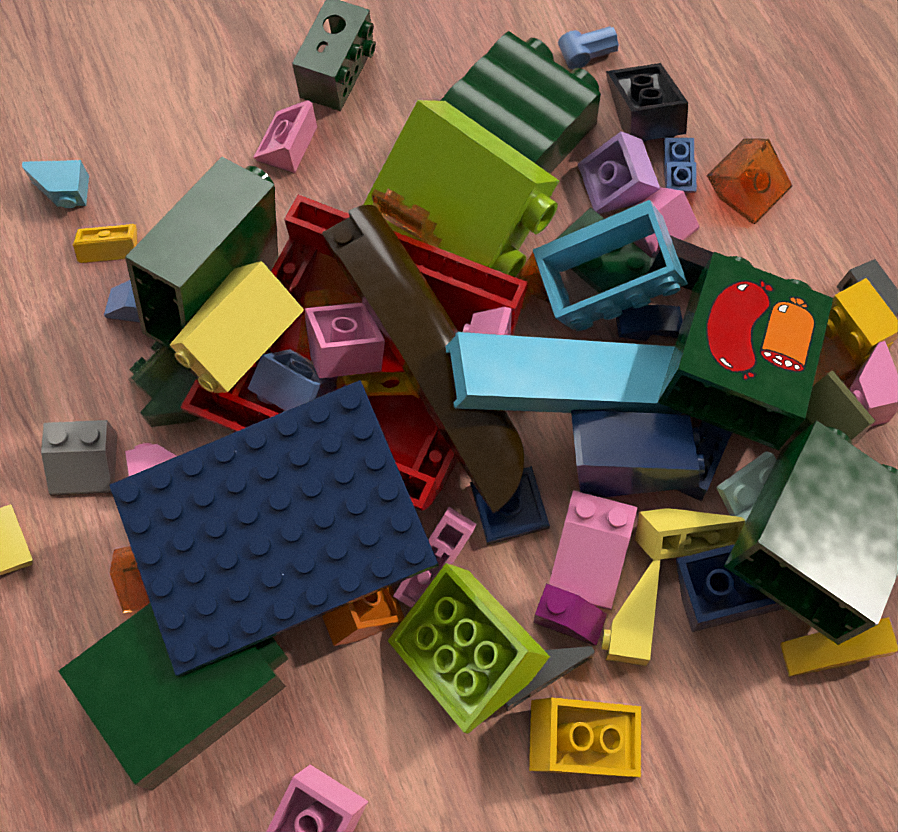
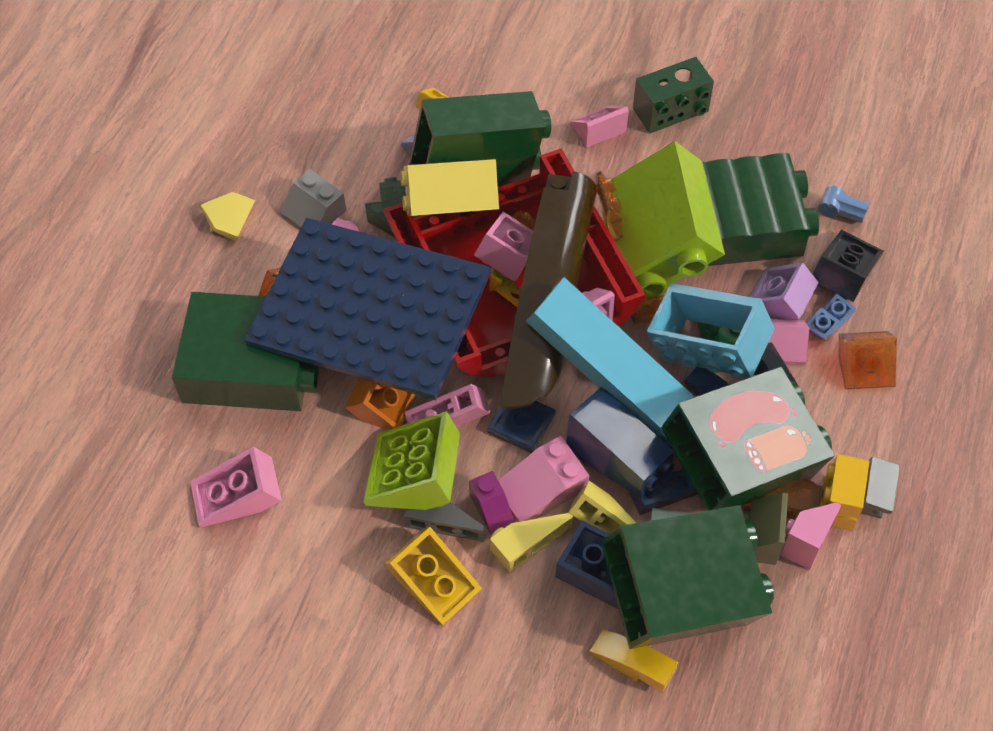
camera: 40 degrees right, 10 degrees down
(60, 181) = (448, 54): medium azure slope -> none
(288, 380) = (458, 241): medium blue slope -> none

